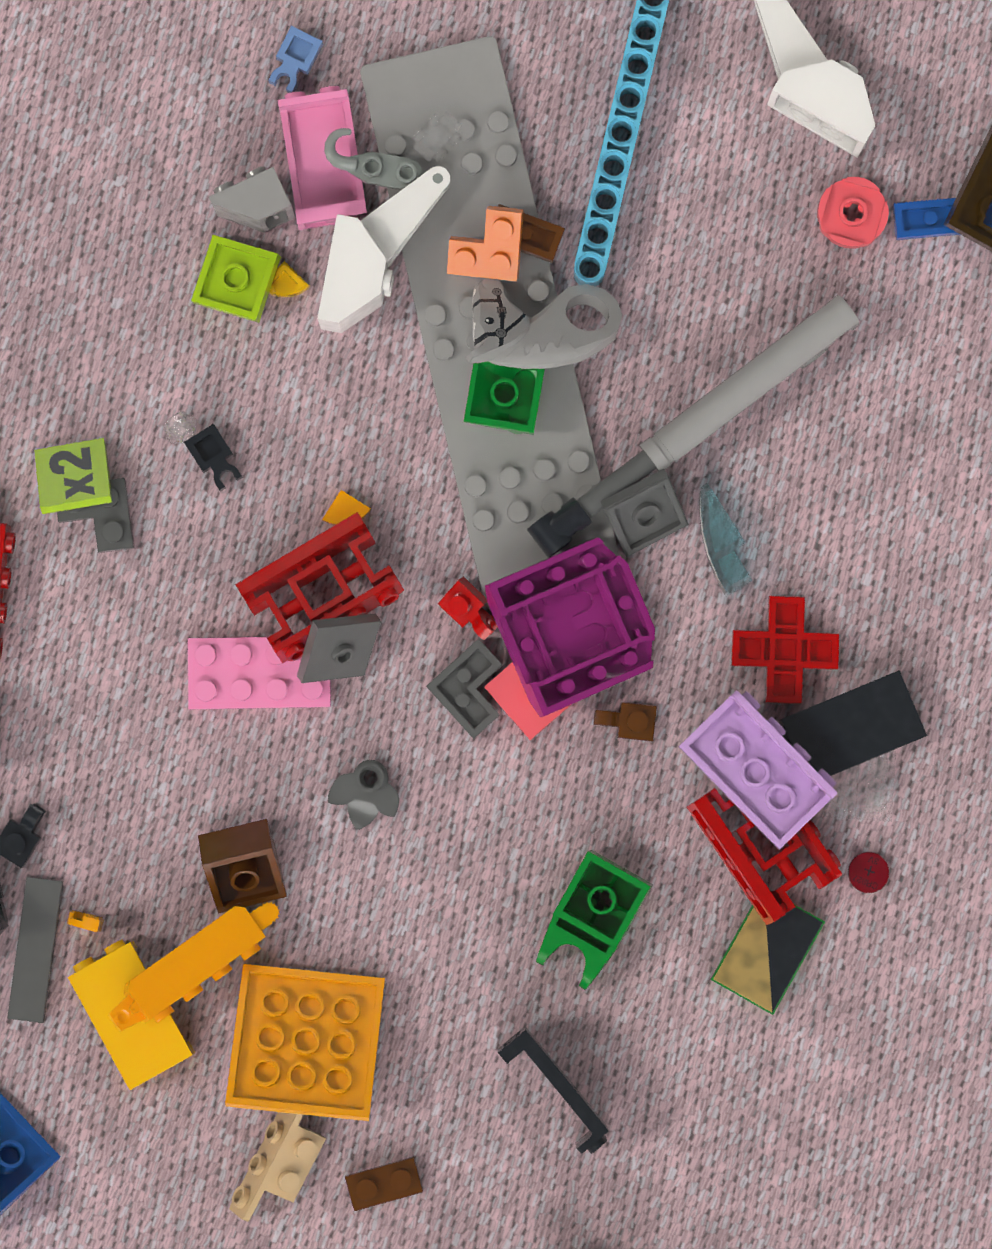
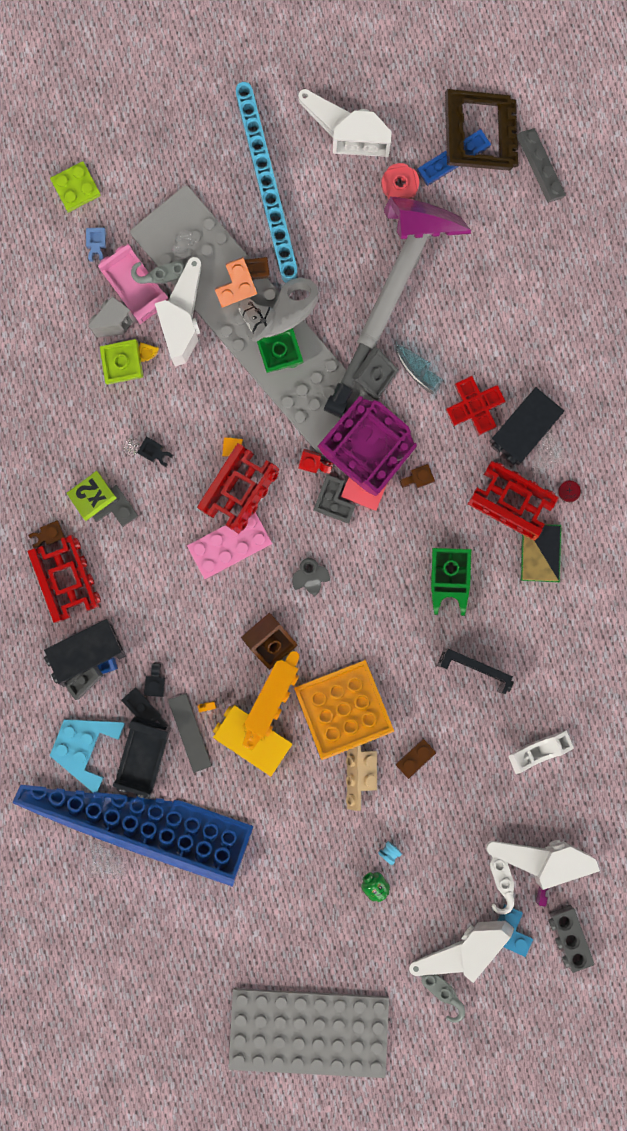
camera: 30 degrees left, 0 degrees up
(338, 648) = (262, 512): dark grey plate -> none
(759, 768) = (494, 466): lavender bracket -> none
(858, 298) = (423, 218): none -> magenta wedge

